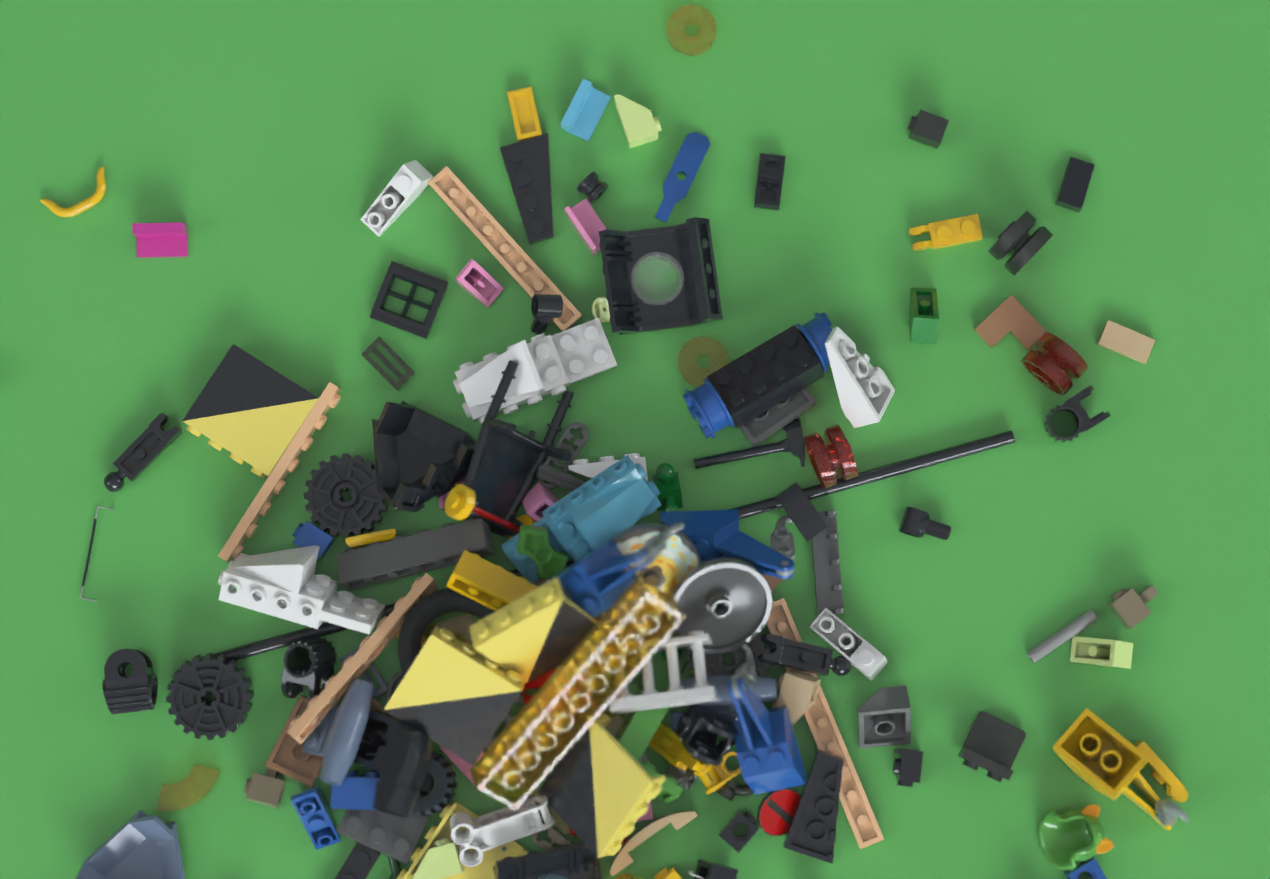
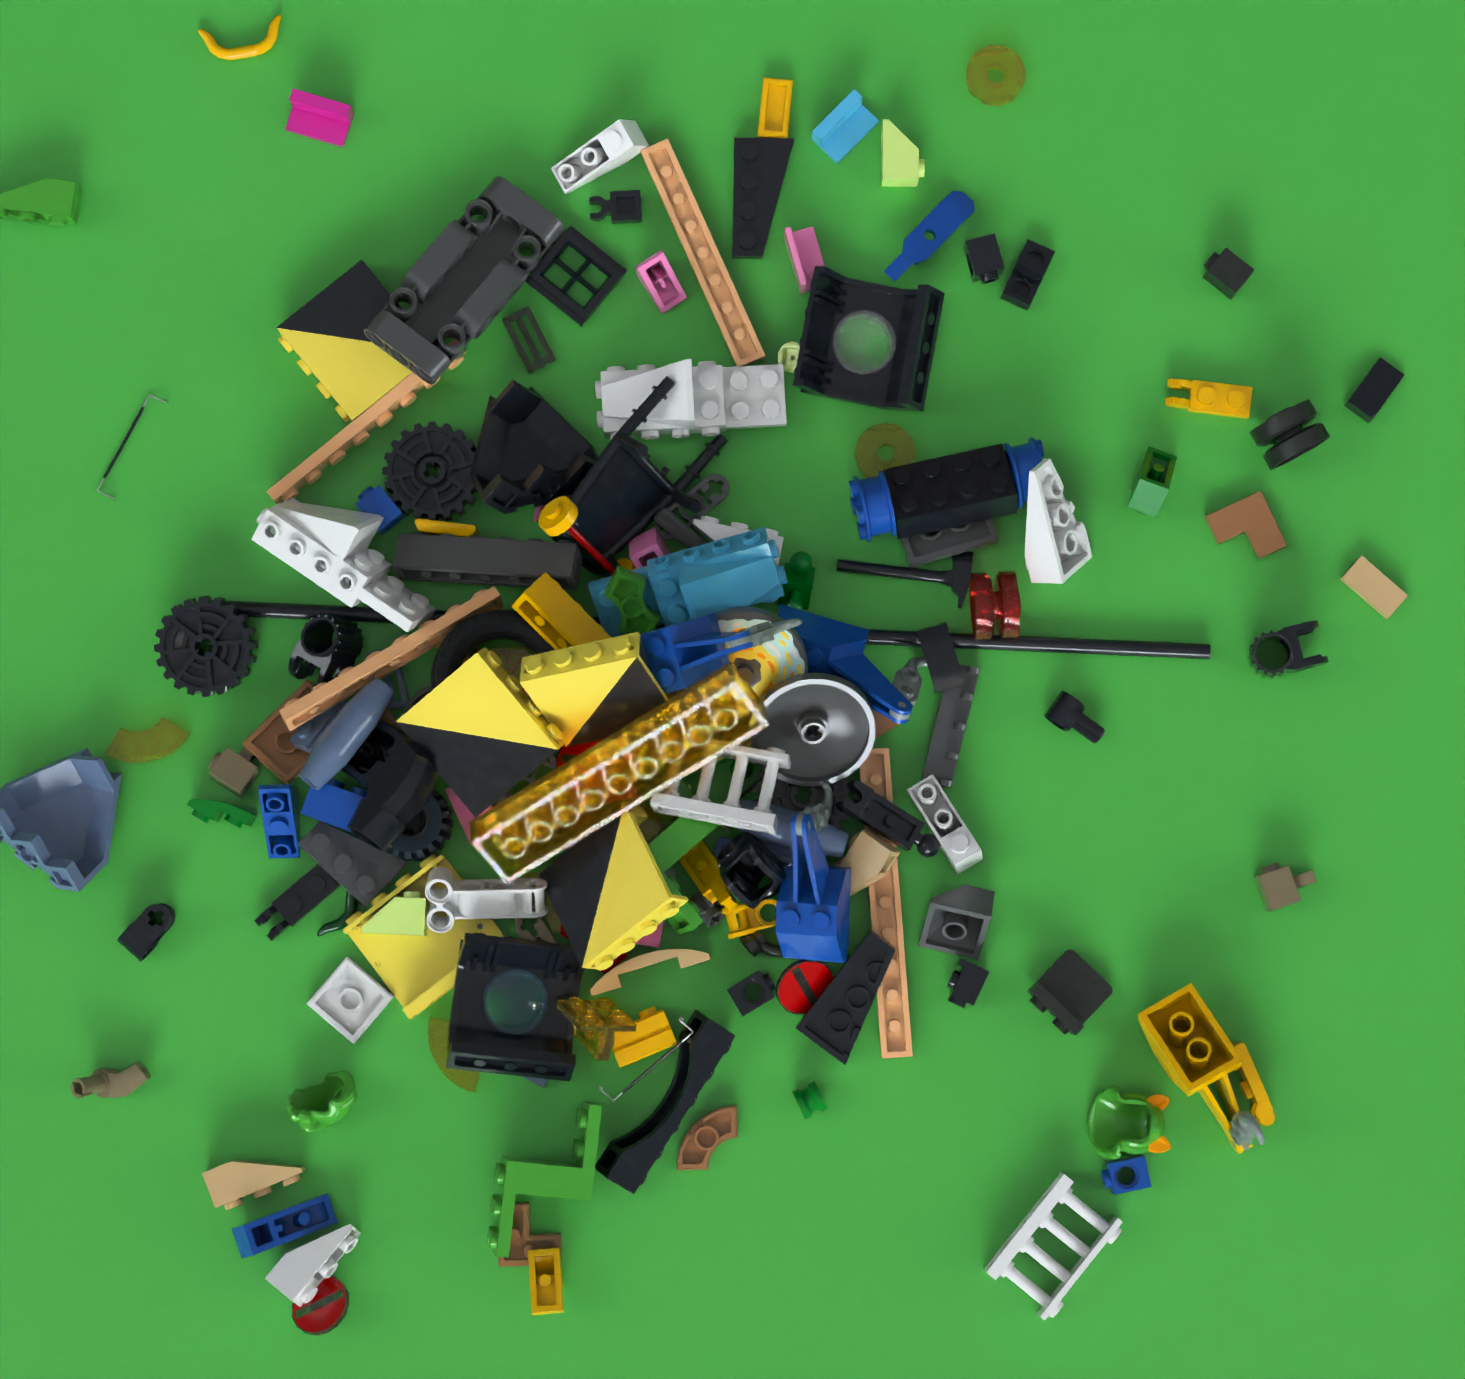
camera: 15 degrees right, 0 degrees up
(129, 693) = (117, 612): black piece -> none
(141, 453) = (219, 349): black plate -> none
(259, 826) = (214, 810): none -> green slope
(321, 333) = (464, 280): none -> dark grey panel
(428, 232) = (622, 207): none -> black plate
(544, 310) = (725, 335): black axle -> none
(592, 187) = (824, 216): black wheel -> none
(731, 180) = (984, 259): none -> black brick
(1054, 363) = (1283, 583): clear red wheel -> none
(1062, 636) = (1190, 895): light grey piece -> none
(1101, 652) = (1229, 927): yellowish green slope -> none

